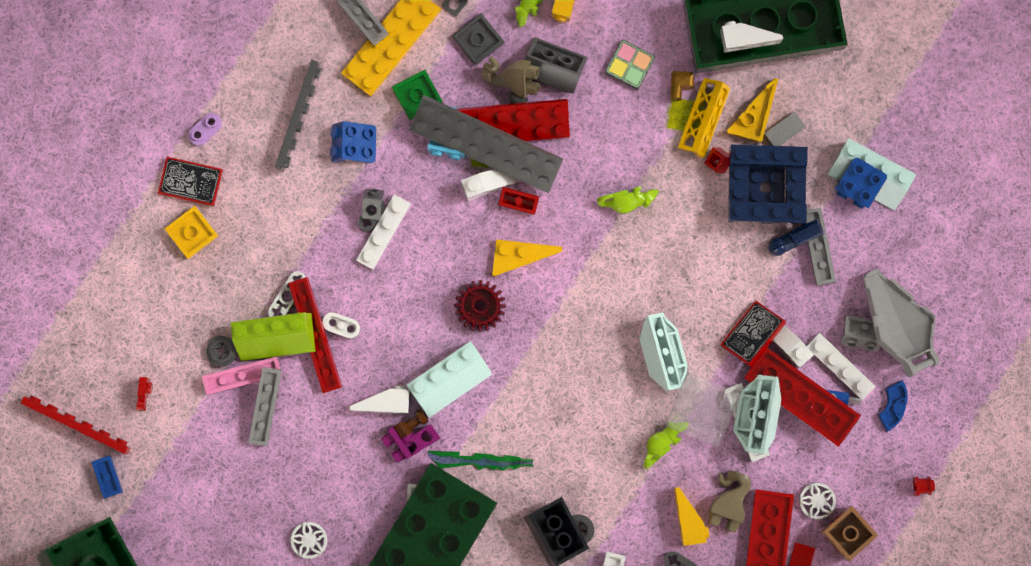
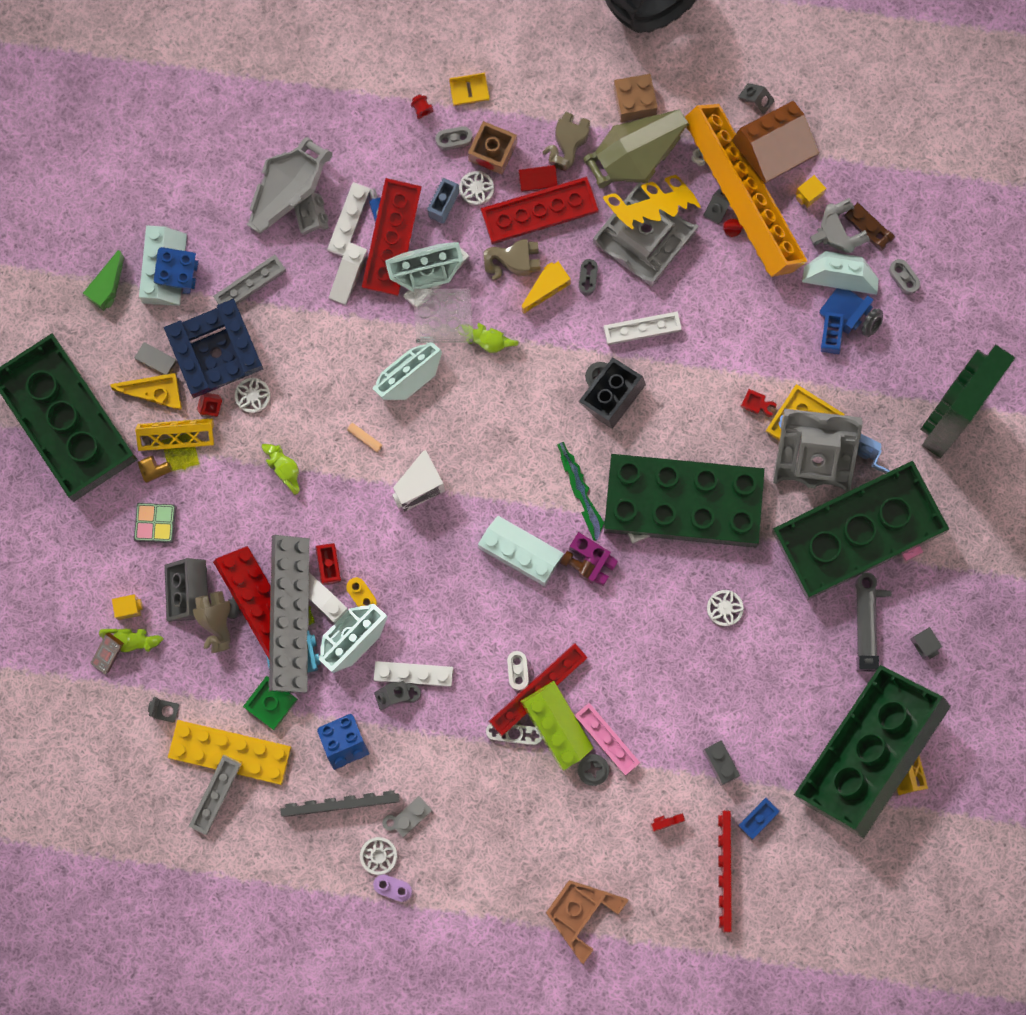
camera: 105 degrees left, 5 degrees down
(110, 278) = (573, 910): none -> nougat wing
(170, 467) = (721, 763): none -> dark grey brick
(190, 181) = (448, 877): tile -> none
(191, 232) = (496, 851): yellow plate -> none
(238, 129) = (378, 855): none -> white wheel
(258, 170) = (409, 817): none -> light grey hinge
(265, 406) = (624, 703): light grey plate -> none
(389, 401) = (567, 595): white slope -> none
(441, 190) = (351, 636): none -> light aqua wedge
(476, 317) = (443, 565): dark red gear -> none
(477, 220) = (362, 593): none -> yellow plate
(478, 39) = (191, 672): dark grey tile -> none
(513, 254) = (379, 544): yellow wing -> none
(553, 313) = (418, 483): none -> white slope
(622, 286) = (364, 437): none -> light nougat piece
(709, 202) = (252, 395): none -> white wheel
(744, 36) = (85, 425): white slope -> none
(753, 333) = (354, 304): tile -> none
(795, 238) = (251, 305): dark blue piece -> none
(816, 462) = (443, 200): none -> sand blue brick
(876, 114) = (104, 286): none -> bright green slope
(876, 502) = (453, 136): none -> light grey plate
(895, 406) = (362, 159): blue tile -> none
(923, 530) = (478, 88): none -> yellow piece

